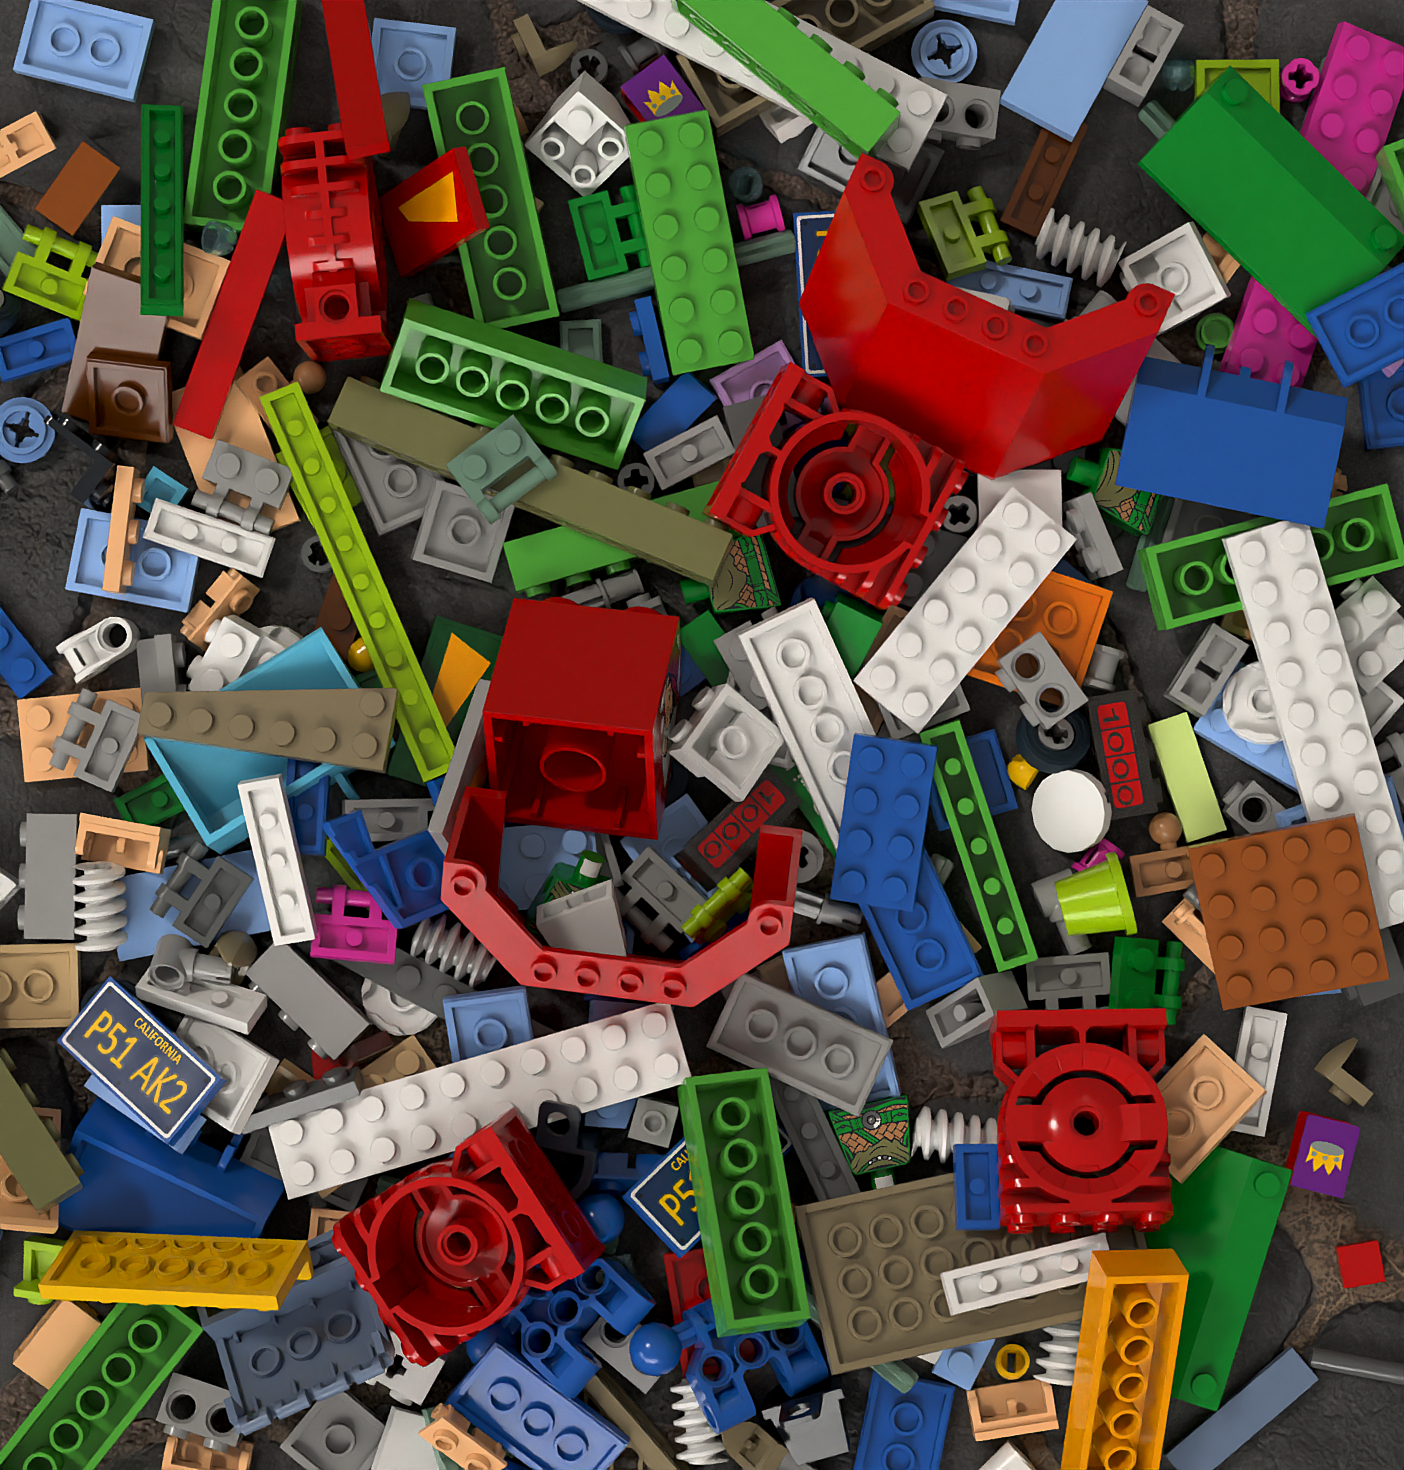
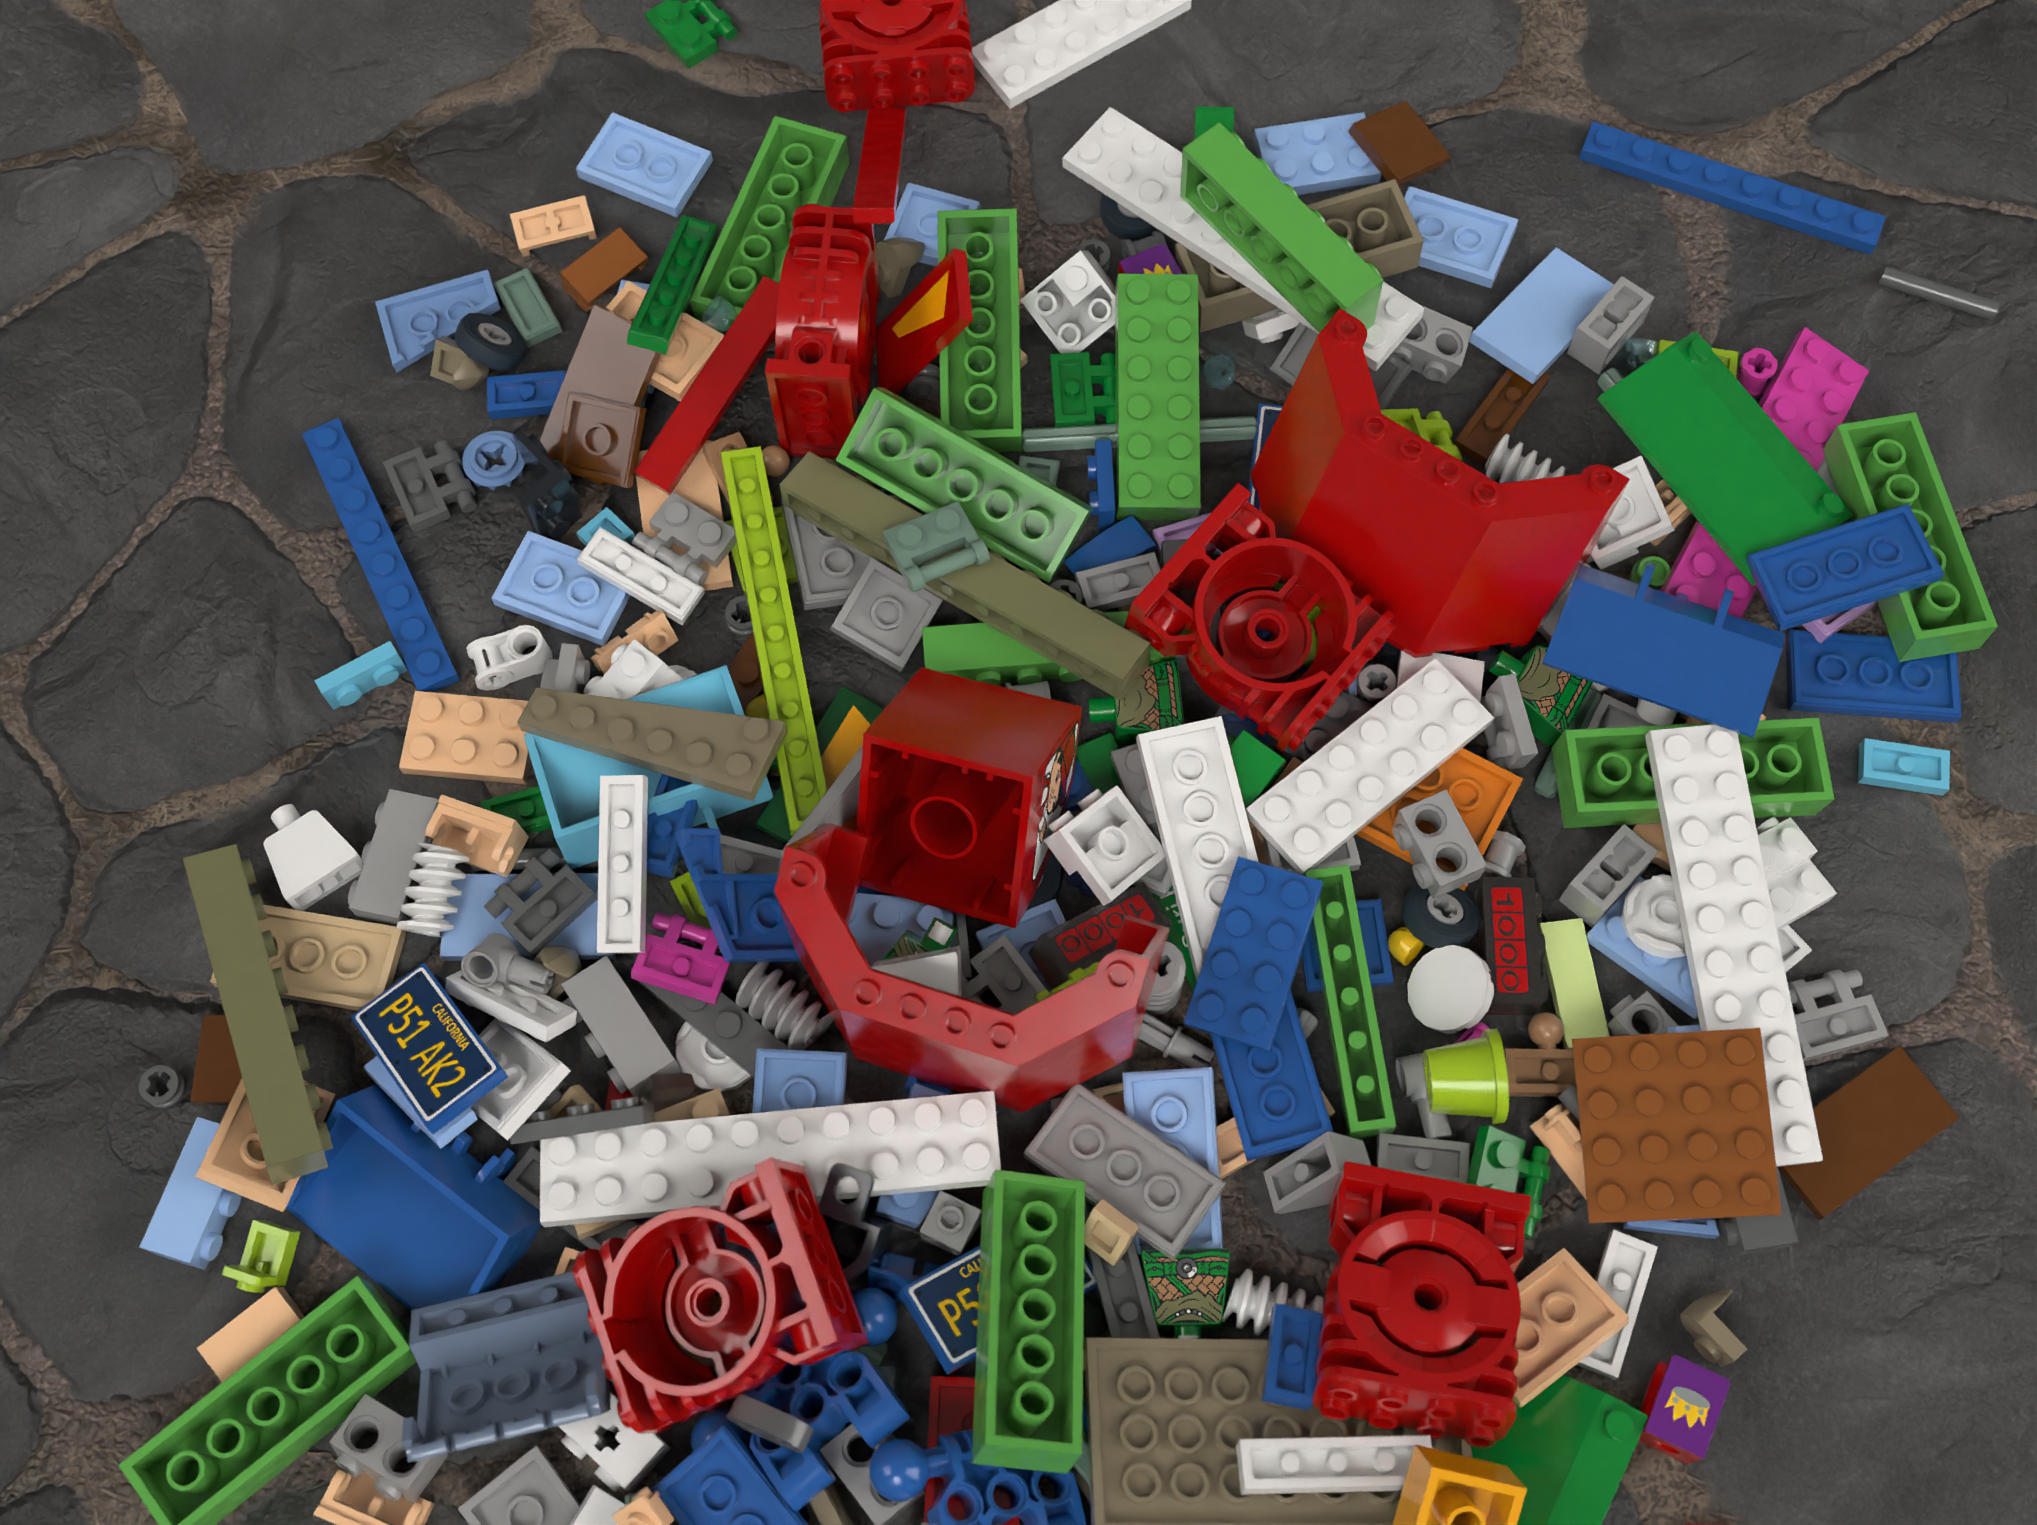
camera: 10 degrees right, 20 degrees down
(46, 283) = (546, 333): lime plate -> none
(108, 746) = (486, 743): light grey plate -> none
(123, 530) = (559, 550): light nougat plate -> none
(177, 1270) = (401, 1270): yellow bracket -> none
(529, 44) = (1050, 237): dark tan plate -> none
(536, 1335) = (770, 1423): none -> dark grey beam
(760, 217) = (1227, 400): dark pink bush -> none
(797, 1106) = (1108, 1232): none -> tan plate
(952, 36) = (1430, 287): light blue gear -> none

